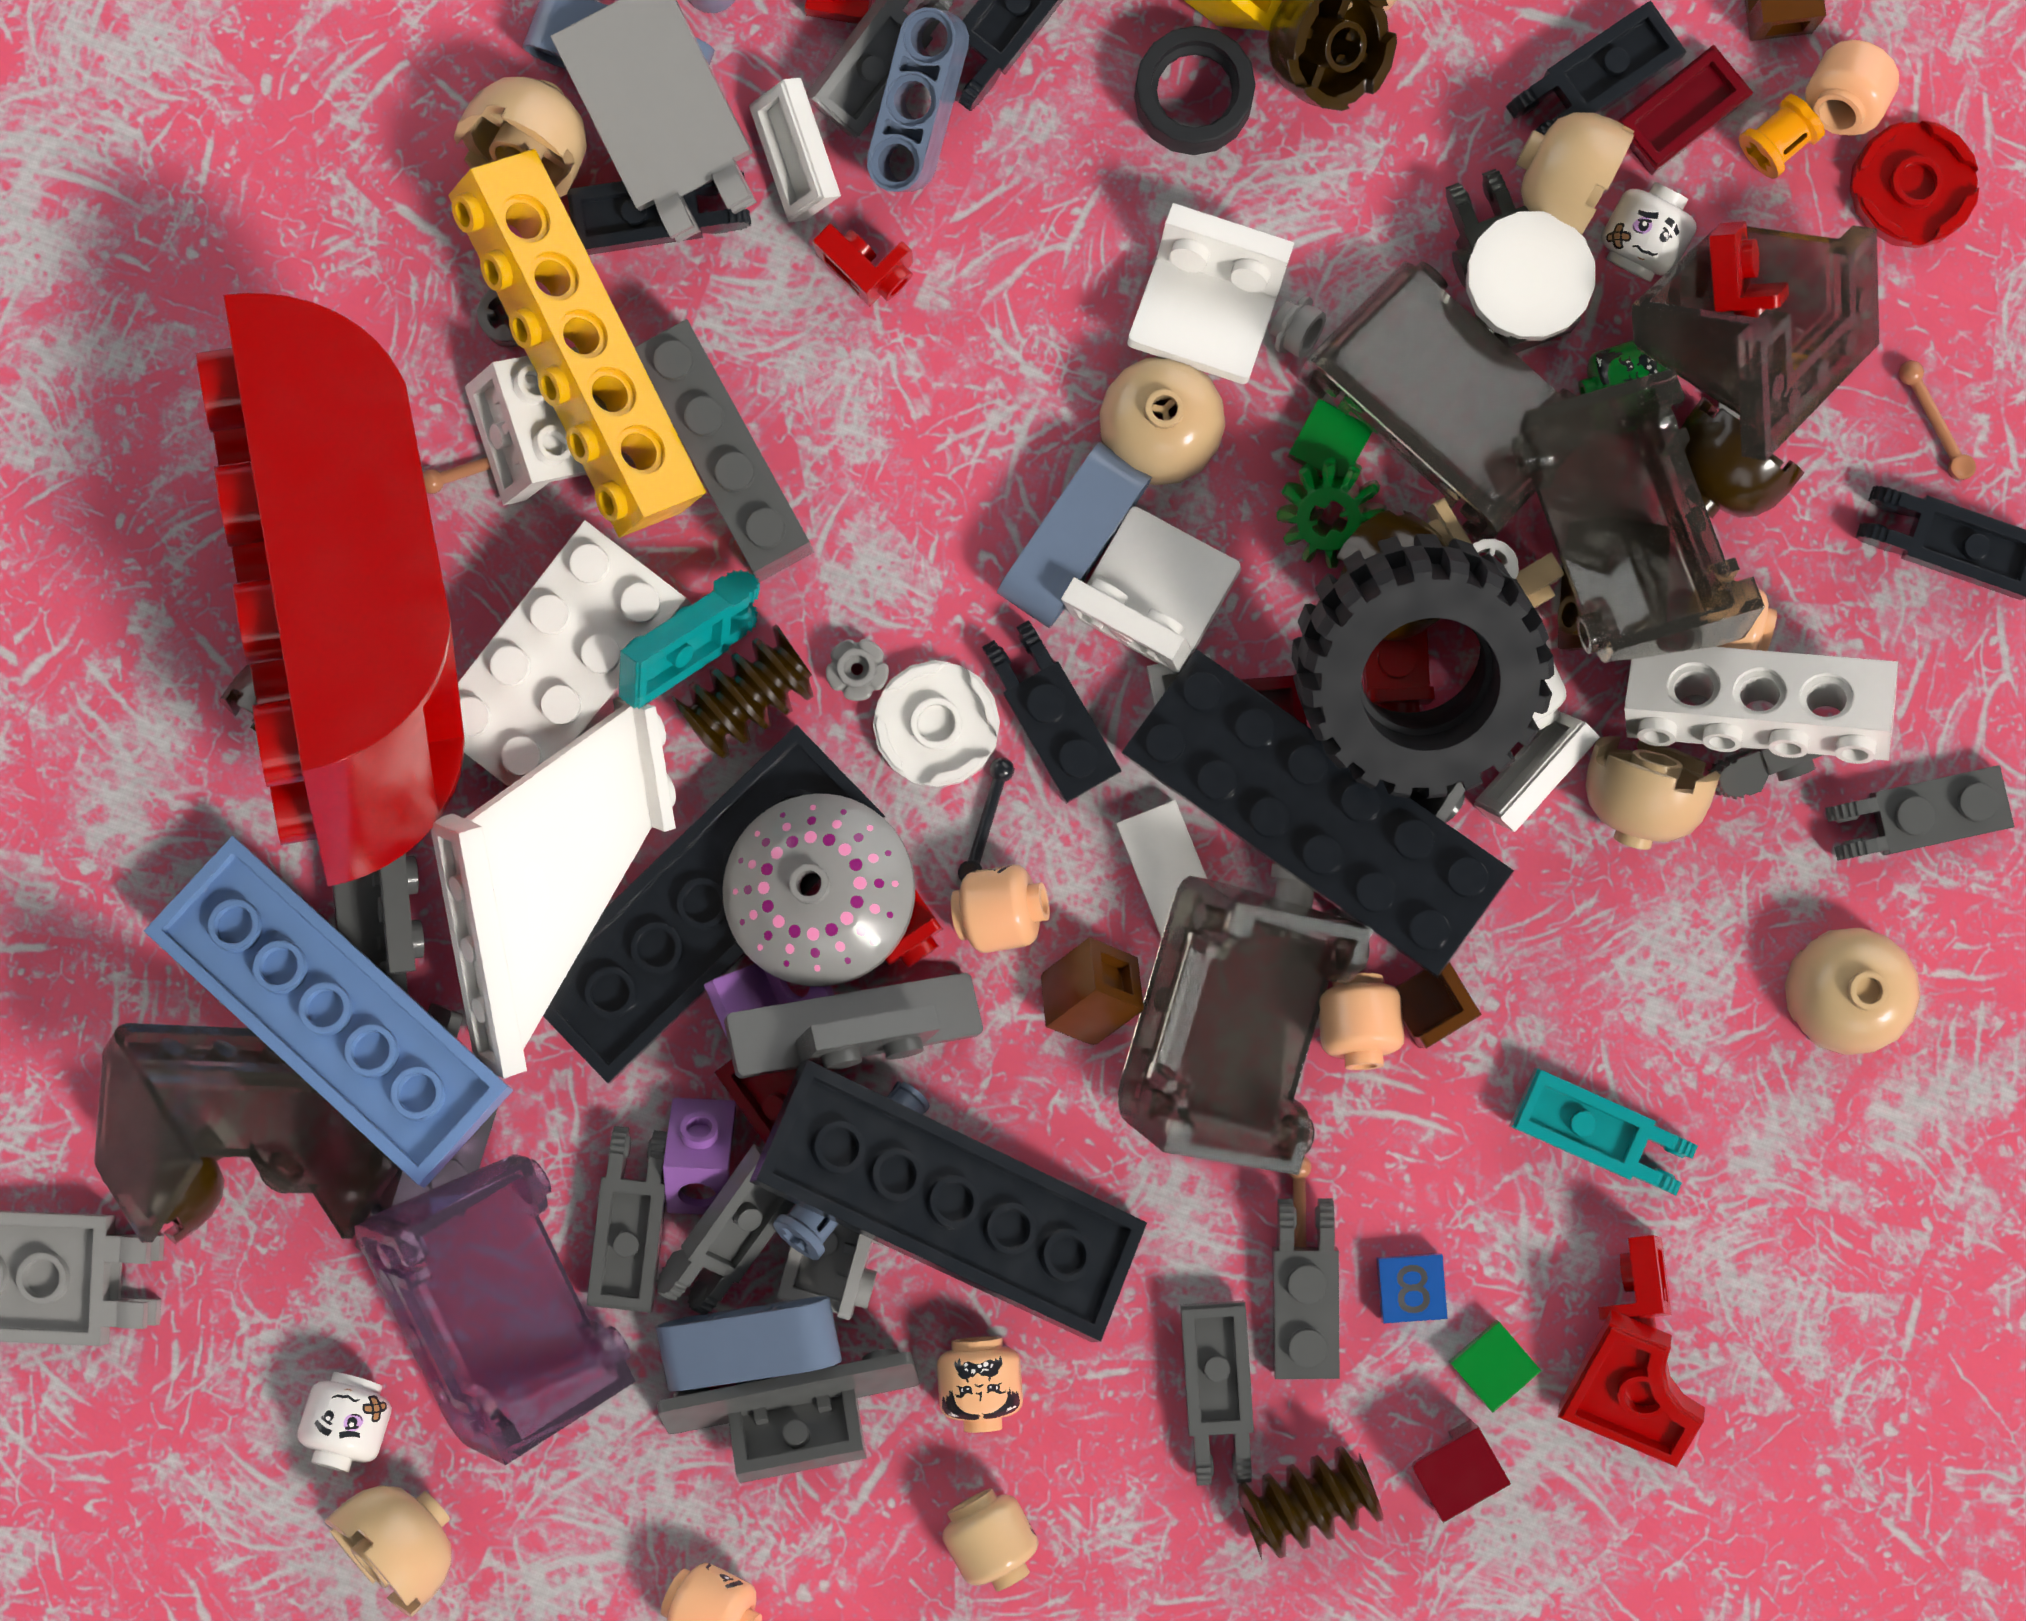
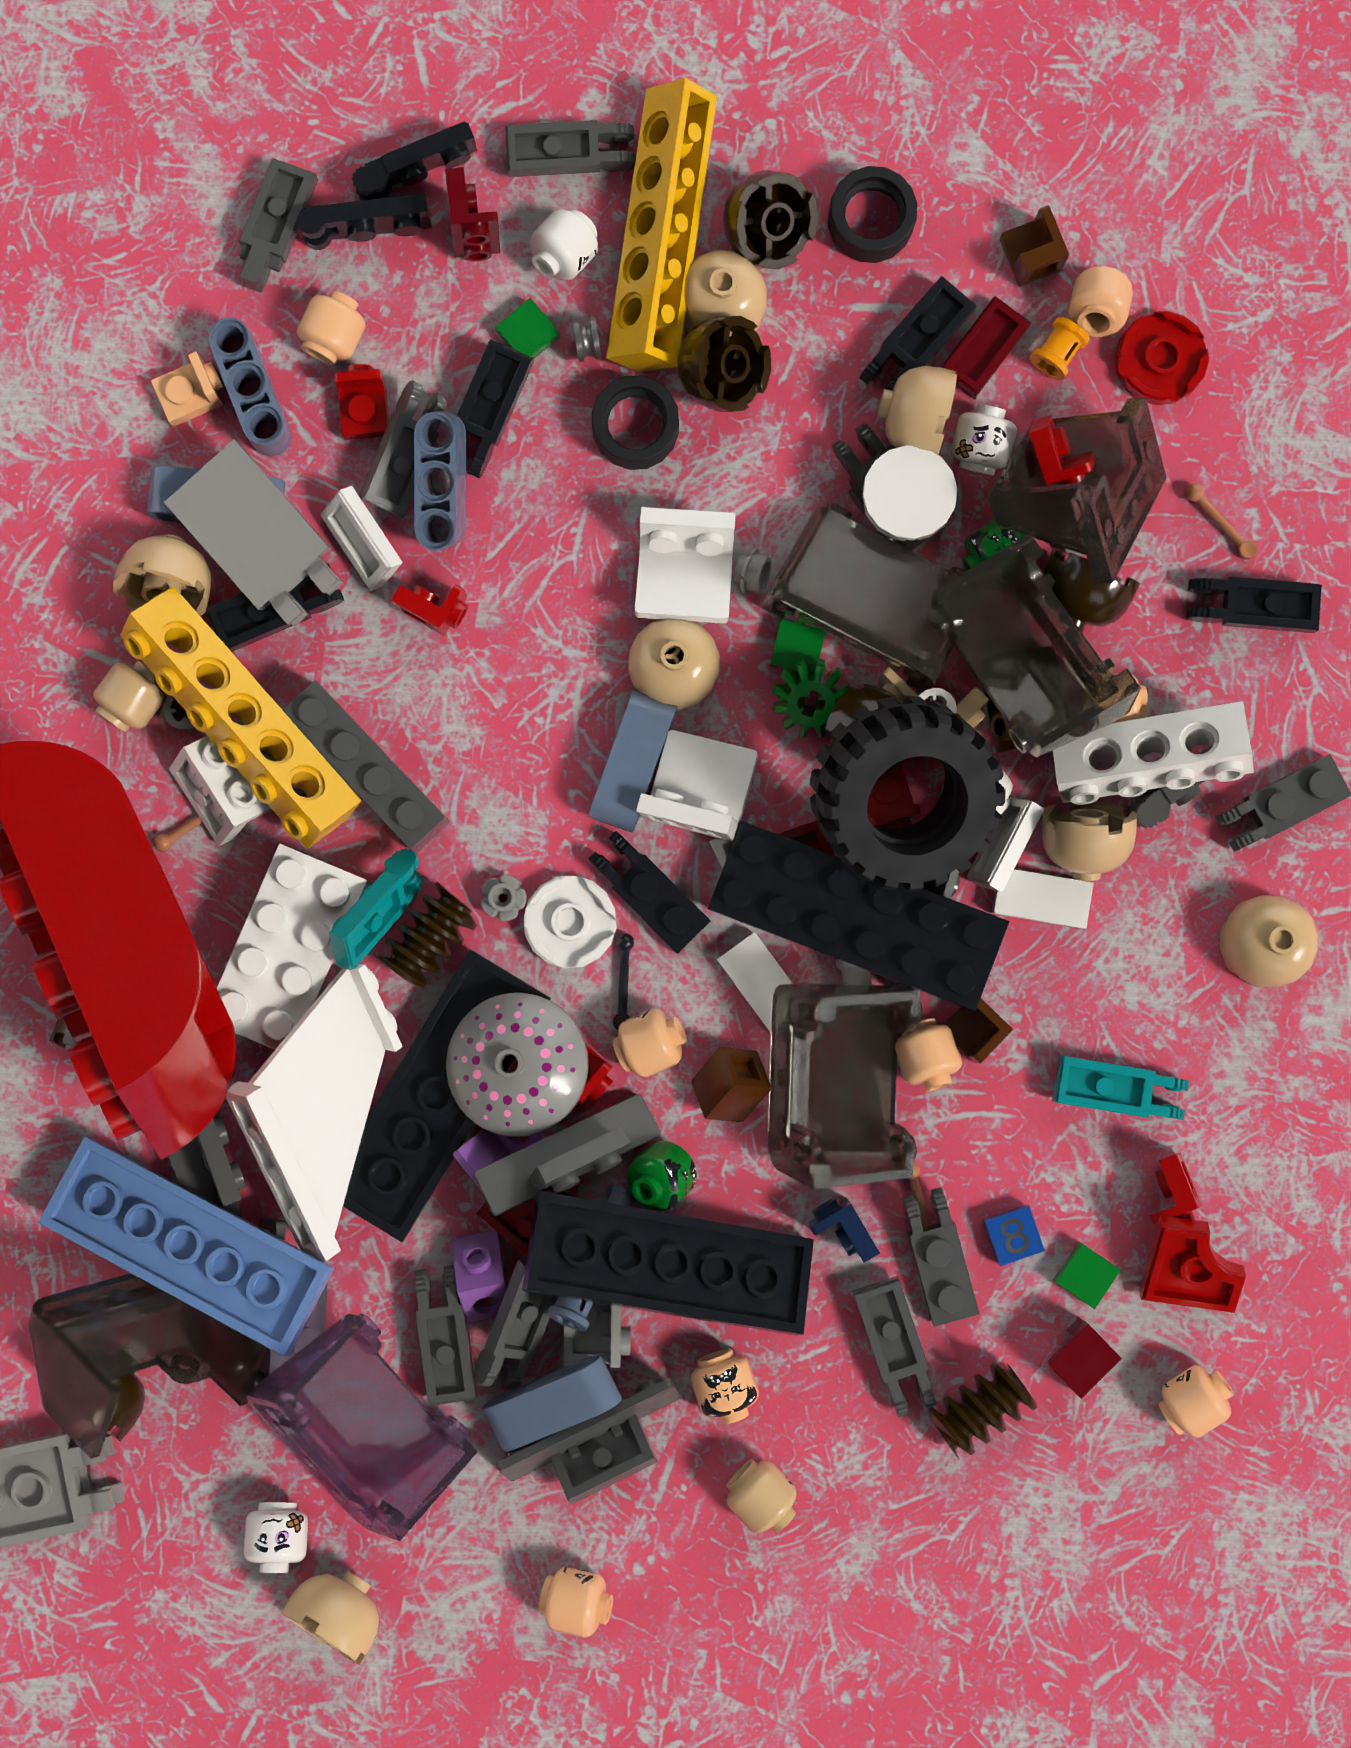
camera: 25 degrees left, 0 degrees up
(438, 277) = (128, 696): none -> tan head
(969, 1086) = (661, 1176): none -> green head
(1199, 1230) = (852, 1233): none -> dark blue bracket
(1569, 857) = (1045, 899): none -> white tile
(1594, 1568) = (1196, 1401): none -> light nougat head

